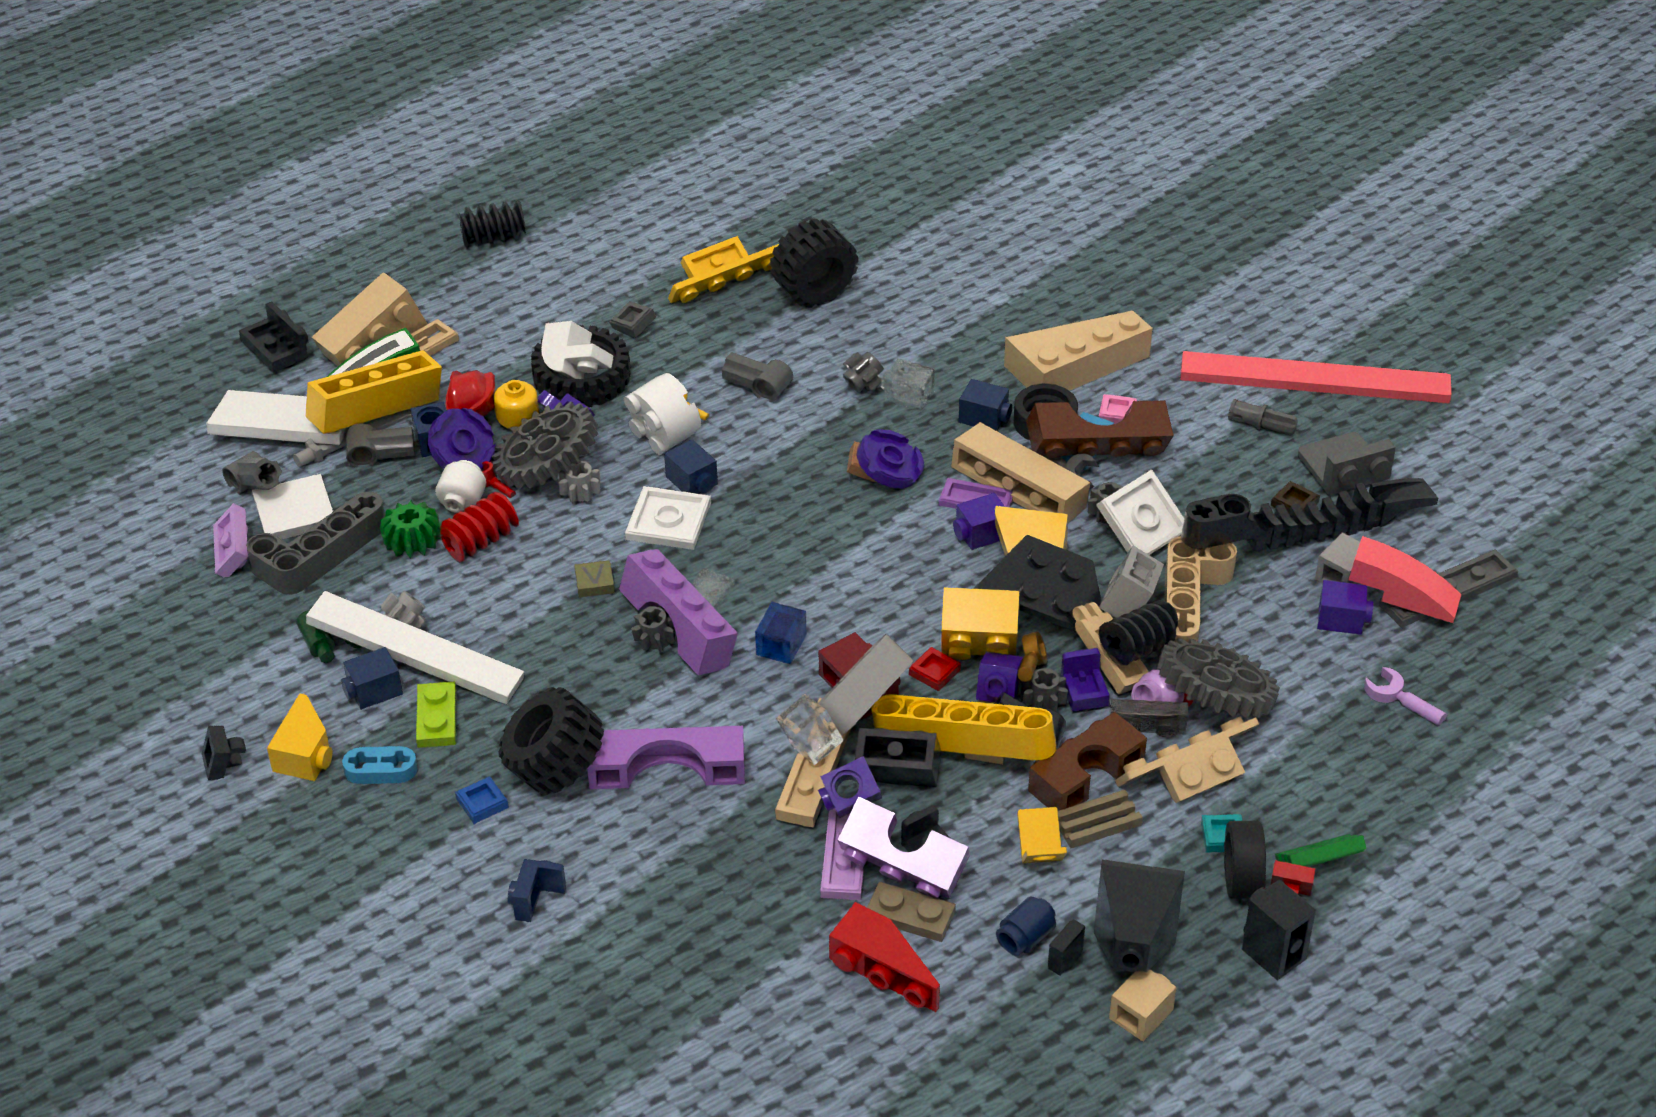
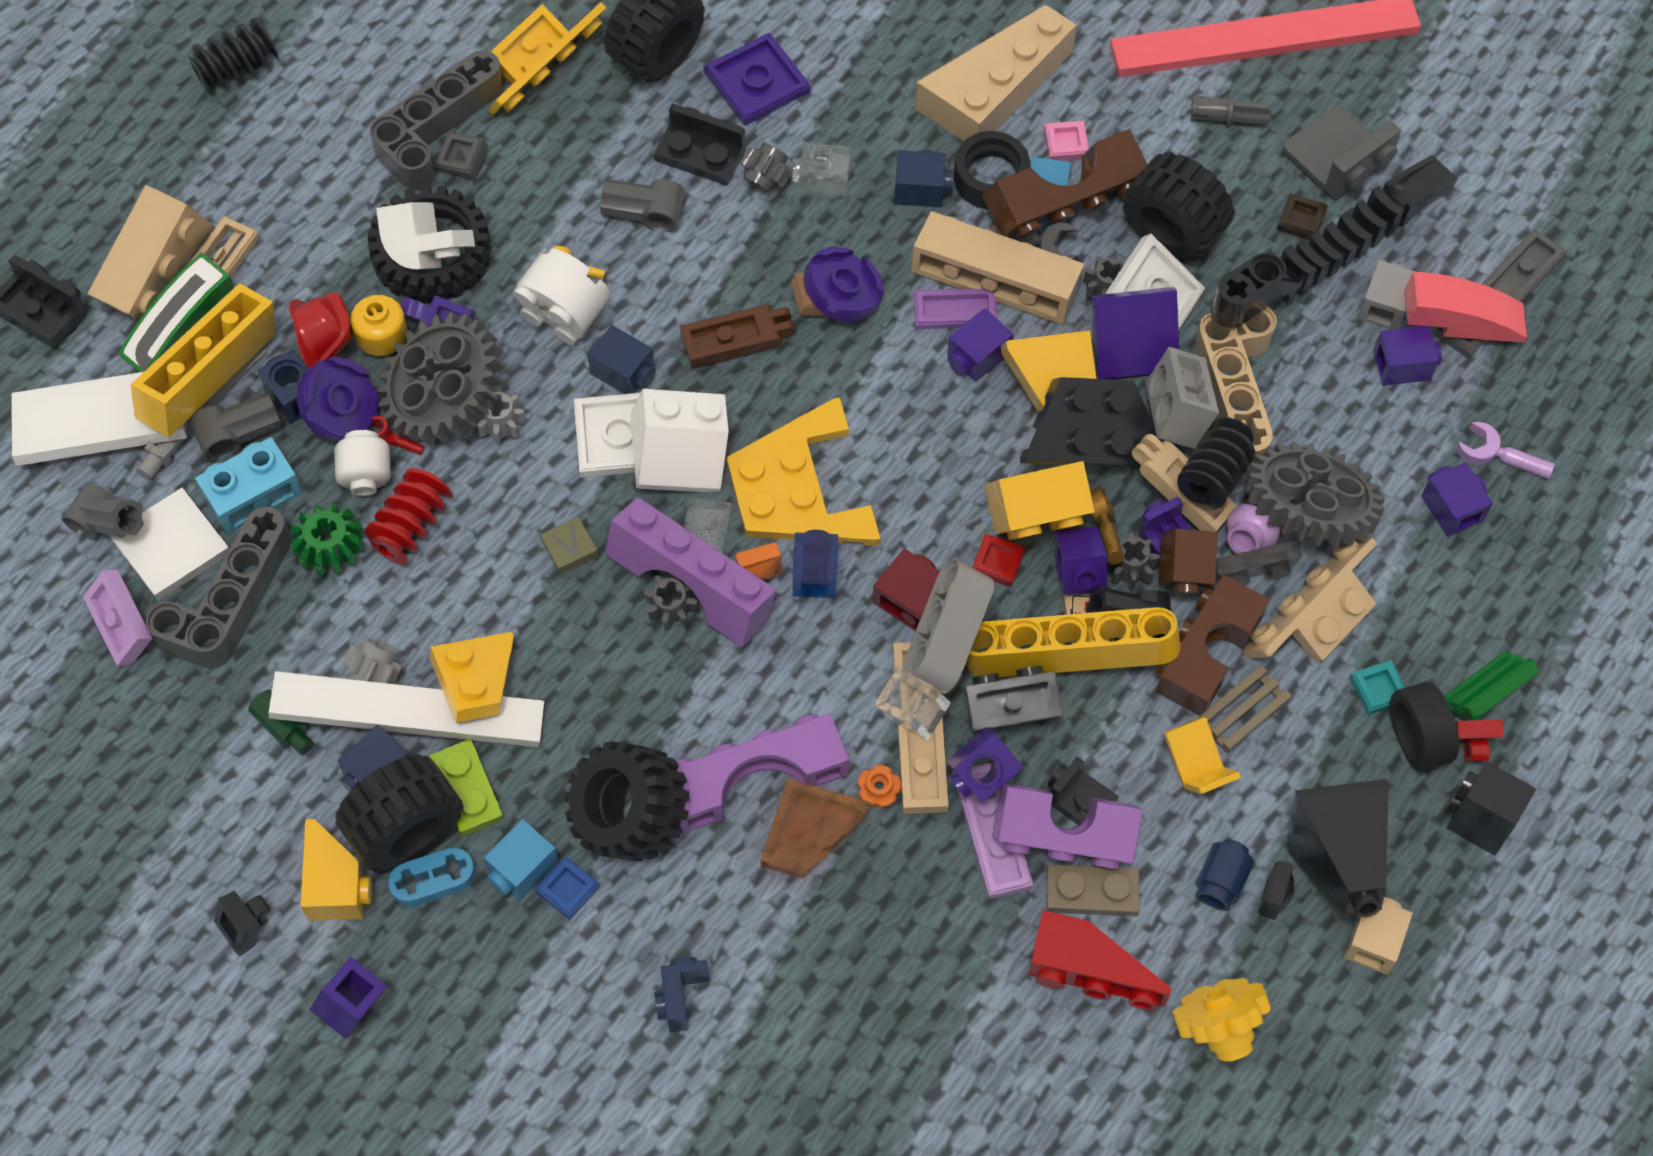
camera: 20 degrees left, 20 degrees up
(272, 818) = (347, 997): none -> dark purple brick
(371, 702) = (399, 813): none -> black tyre
(373, 473) = (247, 482): none -> medium azure brick
(451, 767) = (520, 861): none -> dark azure brick
(477, 636) = (473, 674): none -> yellow wing
(612, 289) = (408, 128): none -> dark grey beam
(693, 805) = (809, 827): none -> clear orange wing
(710, 525) = (679, 440): none -> white slope
(740, 618) = (761, 561): none -> orange tile
(763, 801) = (879, 797): none -> orange plate
(784, 576) = (780, 487): none -> yellow wing
(790, 473) = (735, 334): none -> reddish brown hinge
(820, 349) = (701, 144): none -> black bracket
(885, 321) = (757, 79): none -> dark purple tile
(978, 1023) = (1223, 1016): none -> yellow plant
(1088, 693) = (1188, 560): none -> reddish brown brick
(1110, 531) = (1133, 331): none -> dark purple tile
(1185, 458) = (1179, 205): none -> black tyre
(1346, 714) = (1456, 498): none -> dark purple brick

